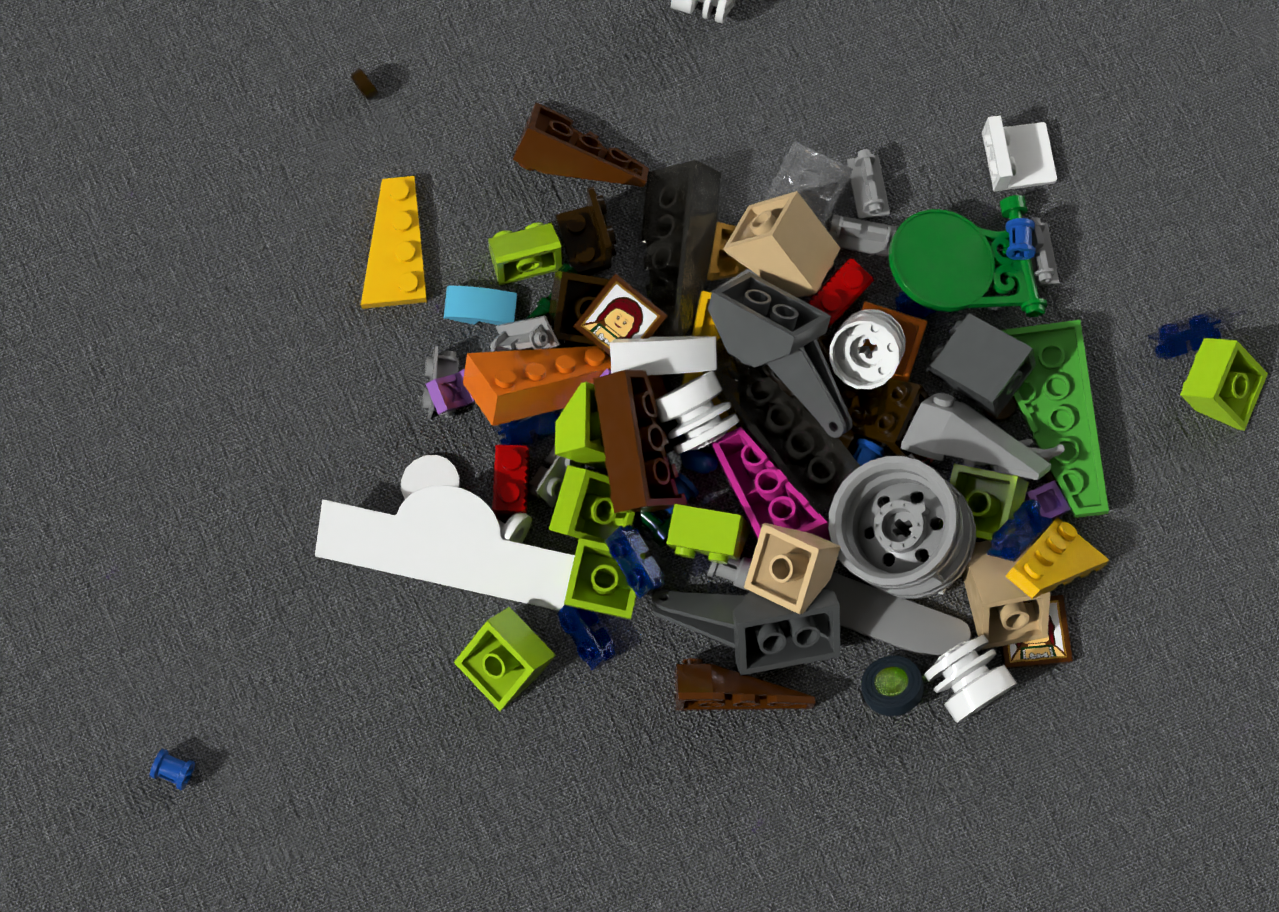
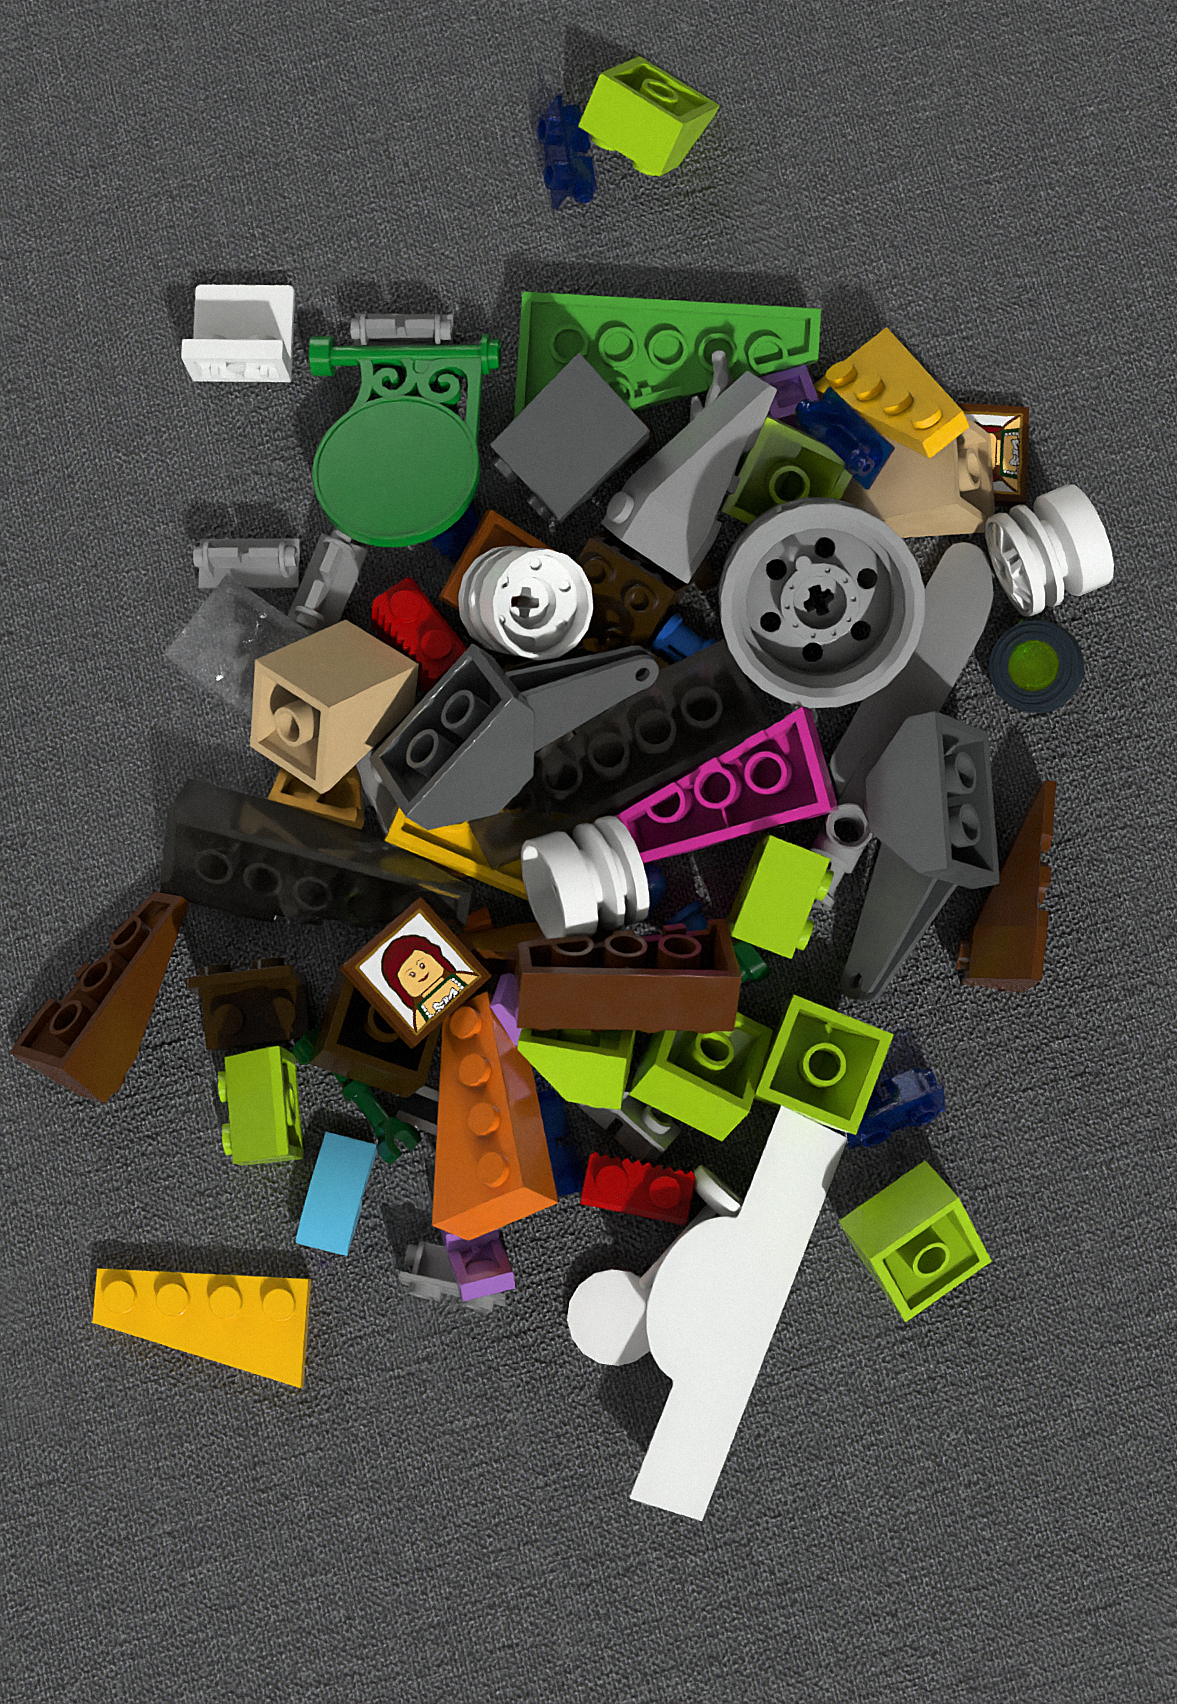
camera: 70 degrees left, 5 degrees up
(524, 335) = (412, 1129): light grey hinge -> none
(626, 547) = (832, 1005): clear blue hinge -> none
(665, 354) = (488, 914): white slope -> none
(790, 566) = (865, 773): tan slope -> none
(1020, 239) = (384, 349): blue bush -> none

